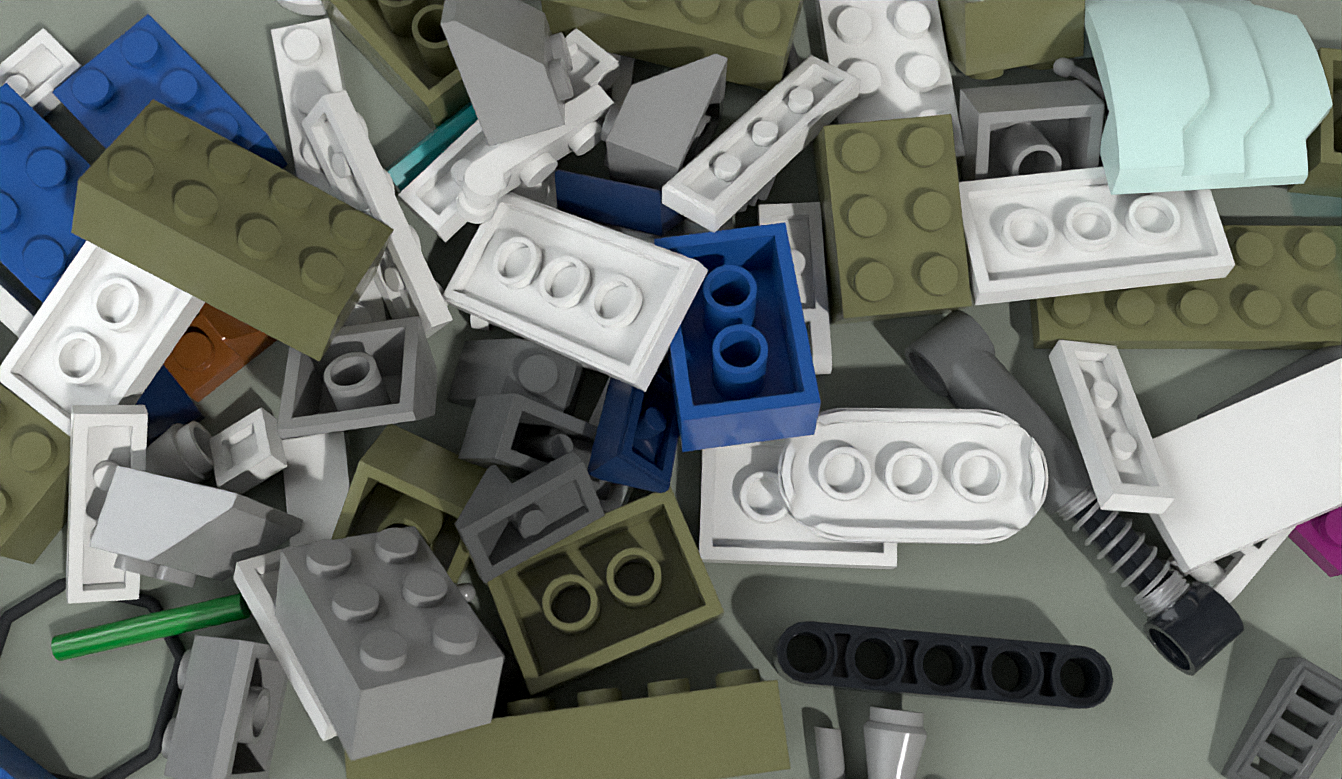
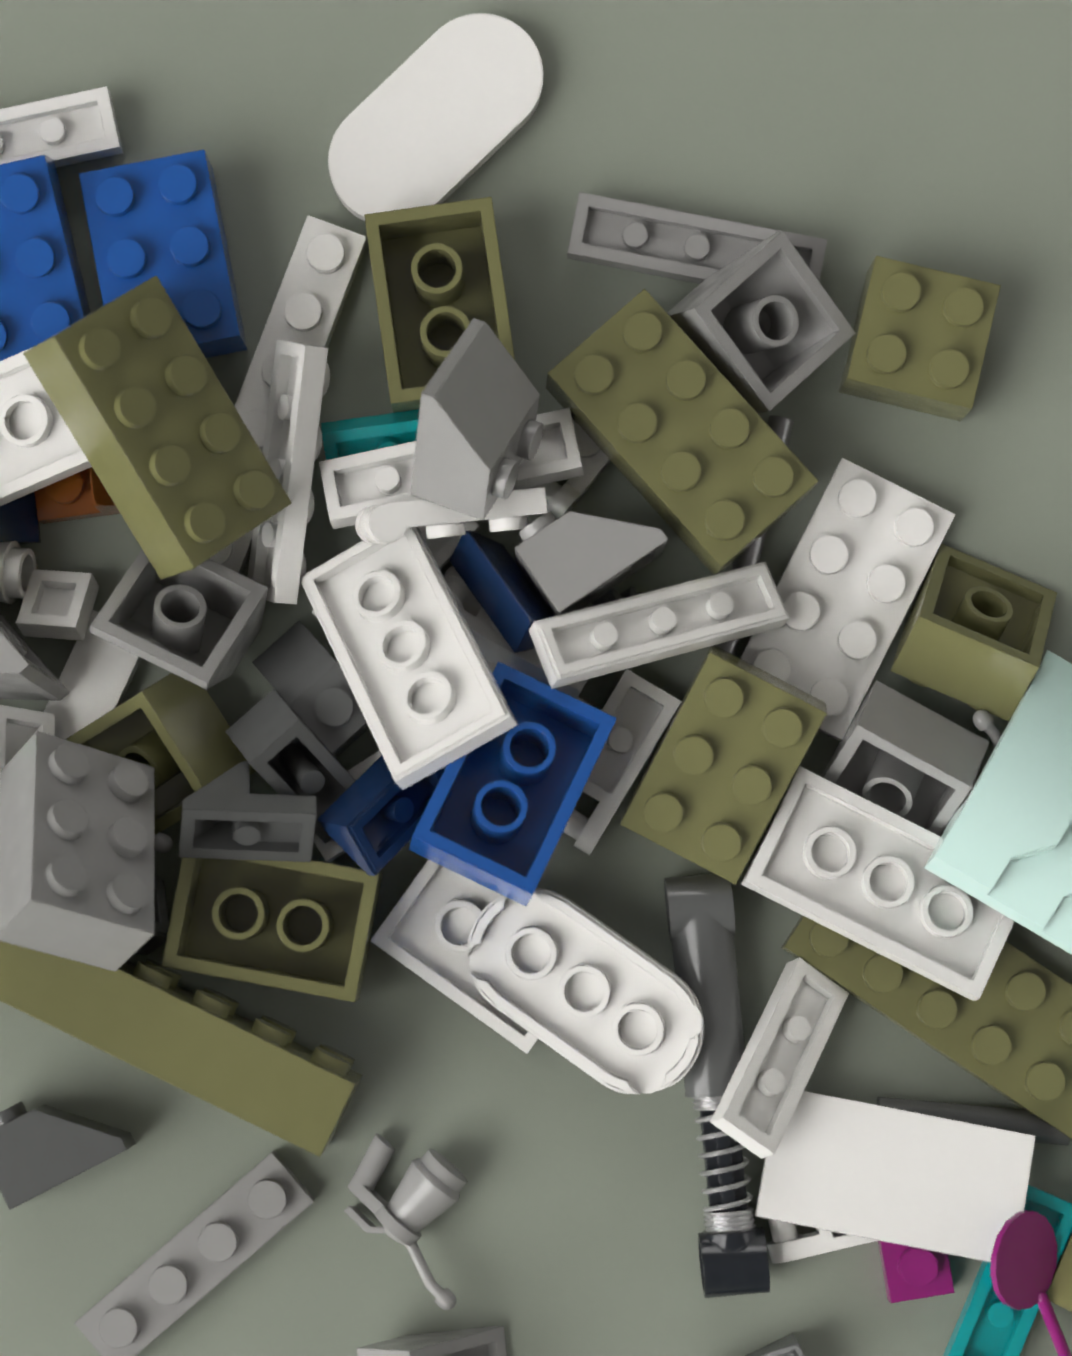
camera: 30 degrees right, 10 degrees up
(971, 659) = (517, 1184): black beam -> none

